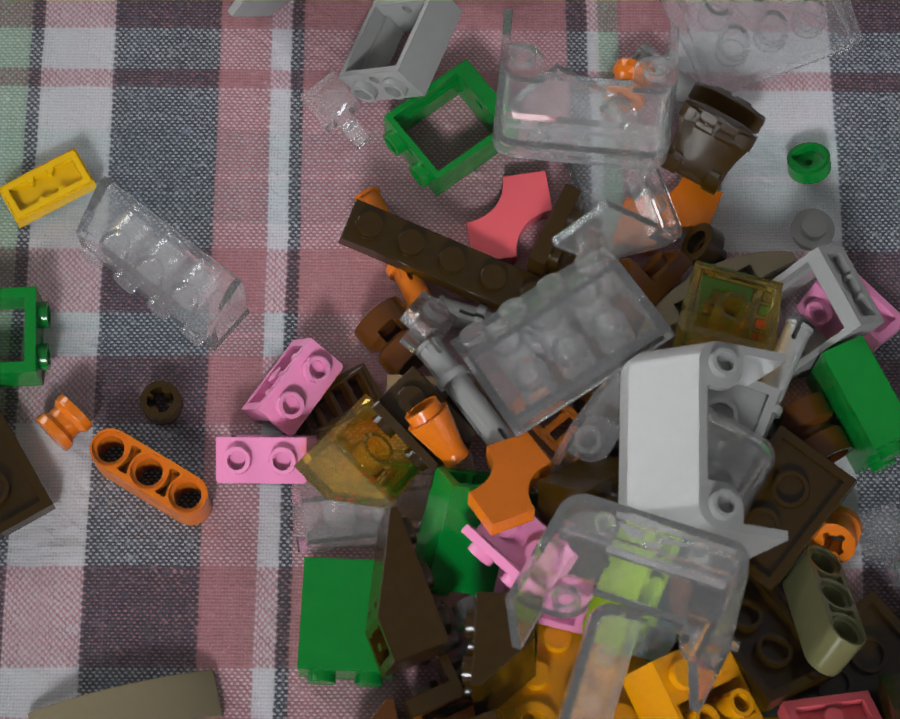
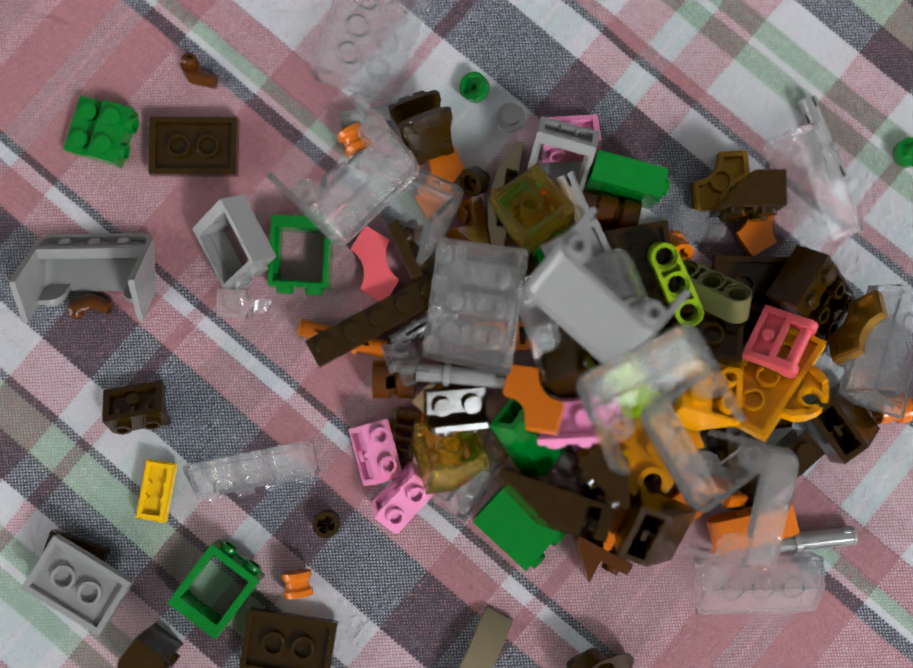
camera: 50 degrees left, 15 degrees up
(123, 94) = (135, 407): none -> dark brown bracket
(139, 459) = (353, 572): orange beam -> none
(436, 429) = (470, 409): orange cone -> none
(791, 572) = (671, 268): none -> lime beam

